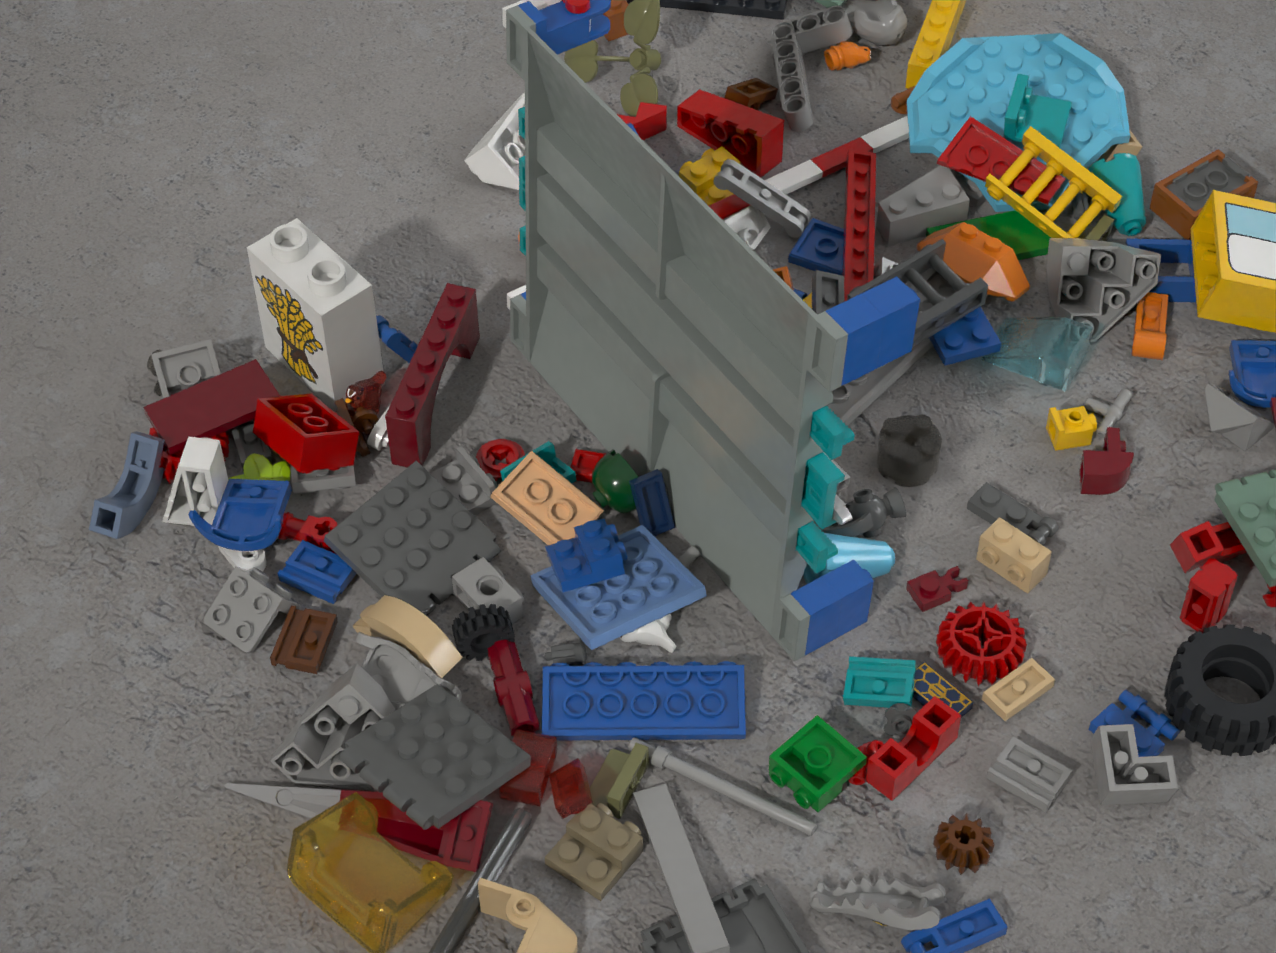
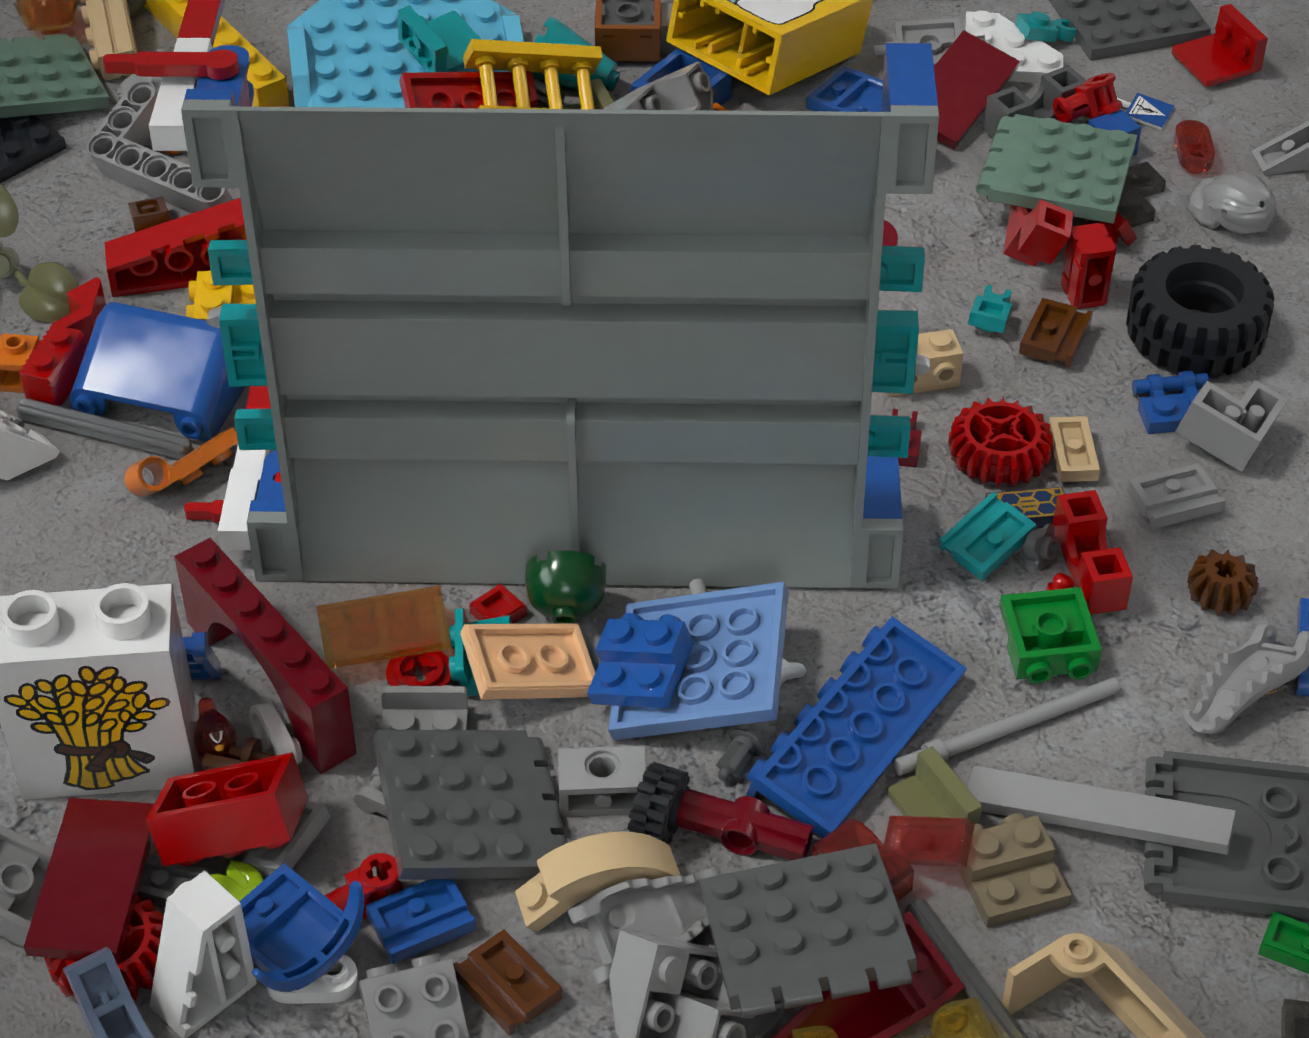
camera: 55 degrees left, 5 degrees down
(510, 418) = (383, 627): none -> clear orange slope
(652, 502) = (618, 571): dark blue tile -> none
(1114, 570) = (991, 311): none -> teal plate
(1132, 618) = (1055, 332): none -> reddish brown plate

